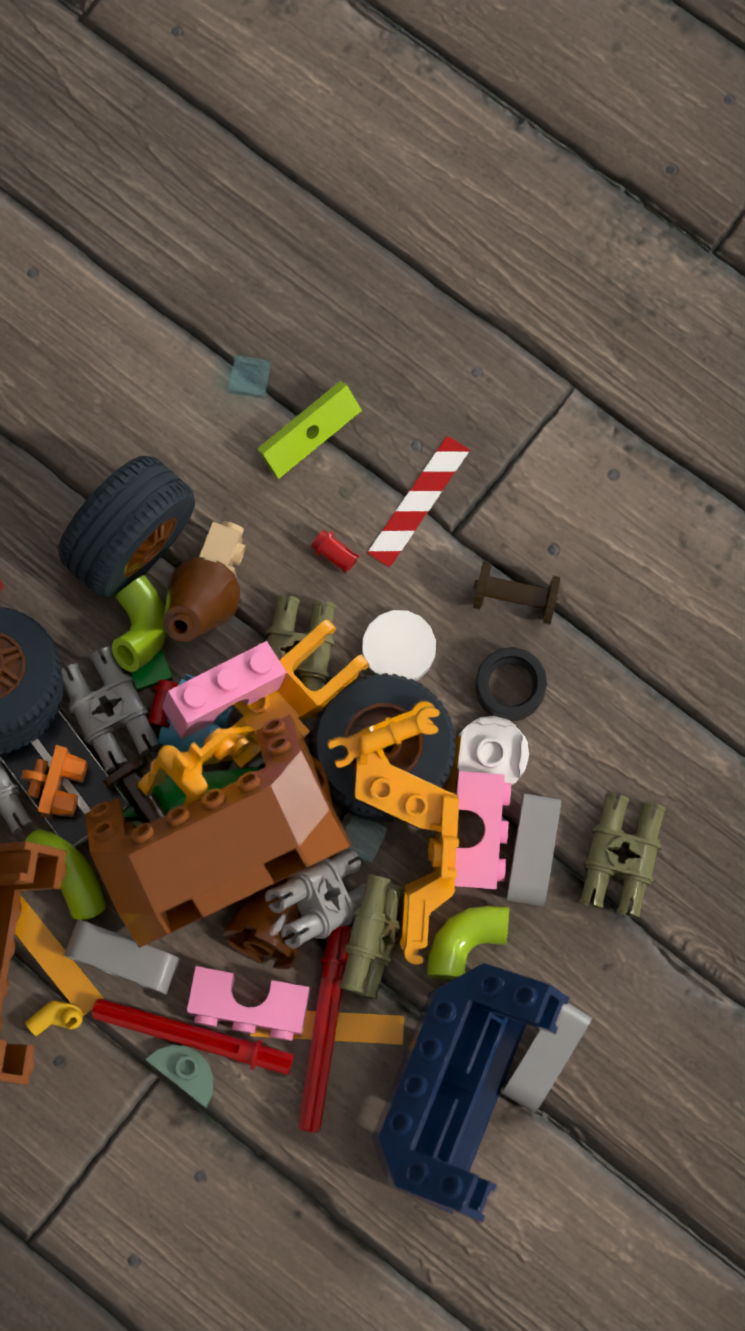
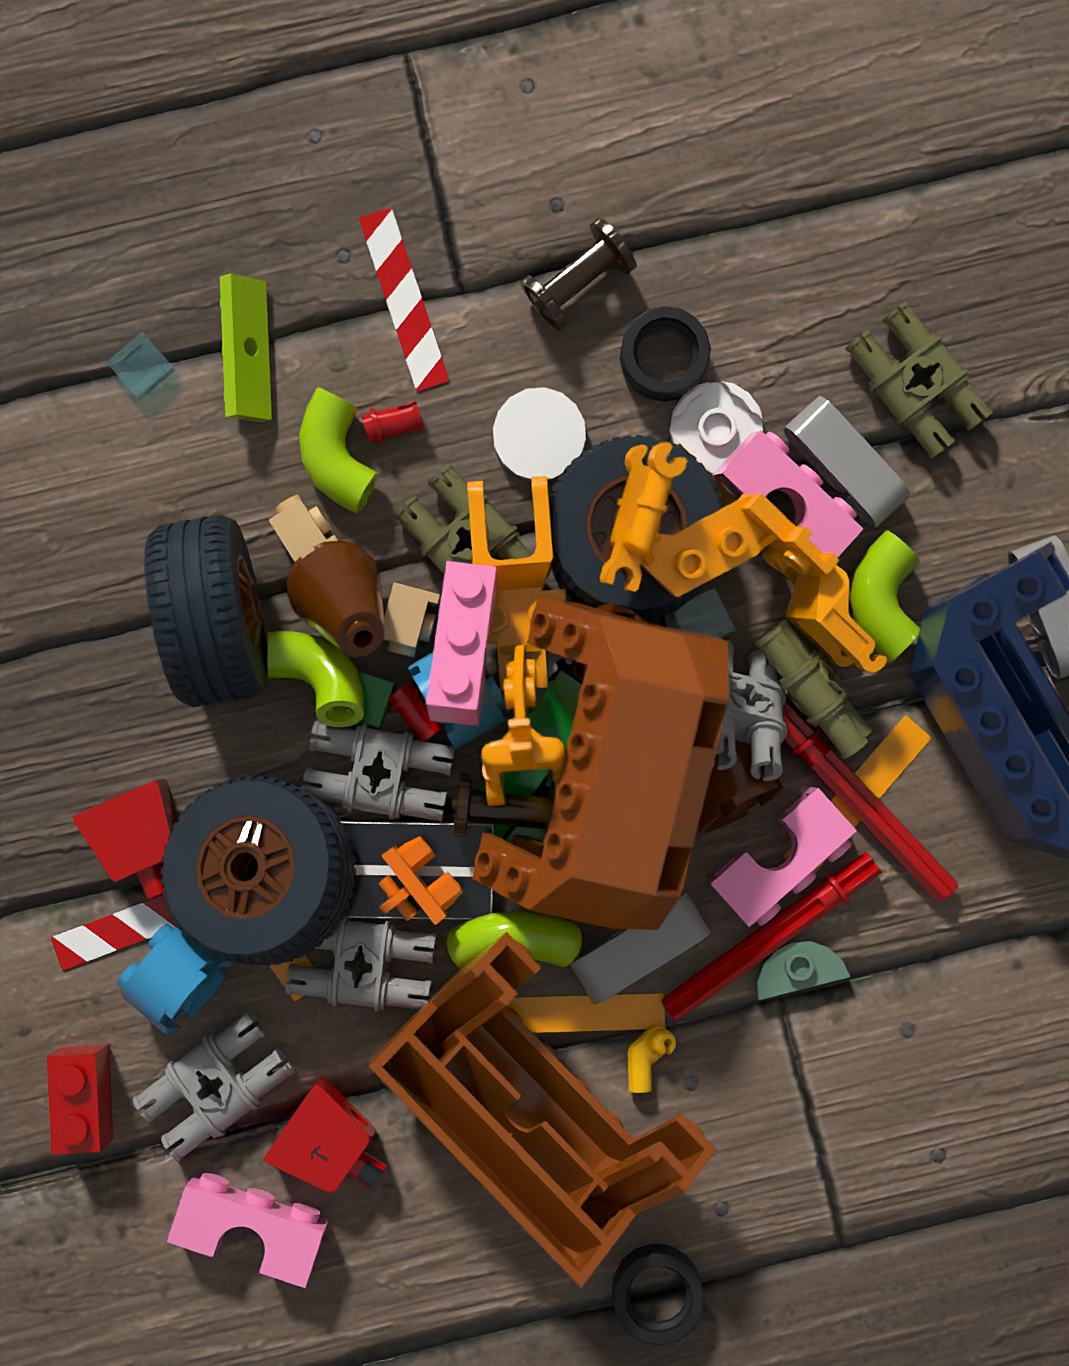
camera: 55 degrees left, 10 degrees up
(215, 650) = (409, 619): none -> tan brick
(281, 527) = (326, 454): none -> lime cylinder

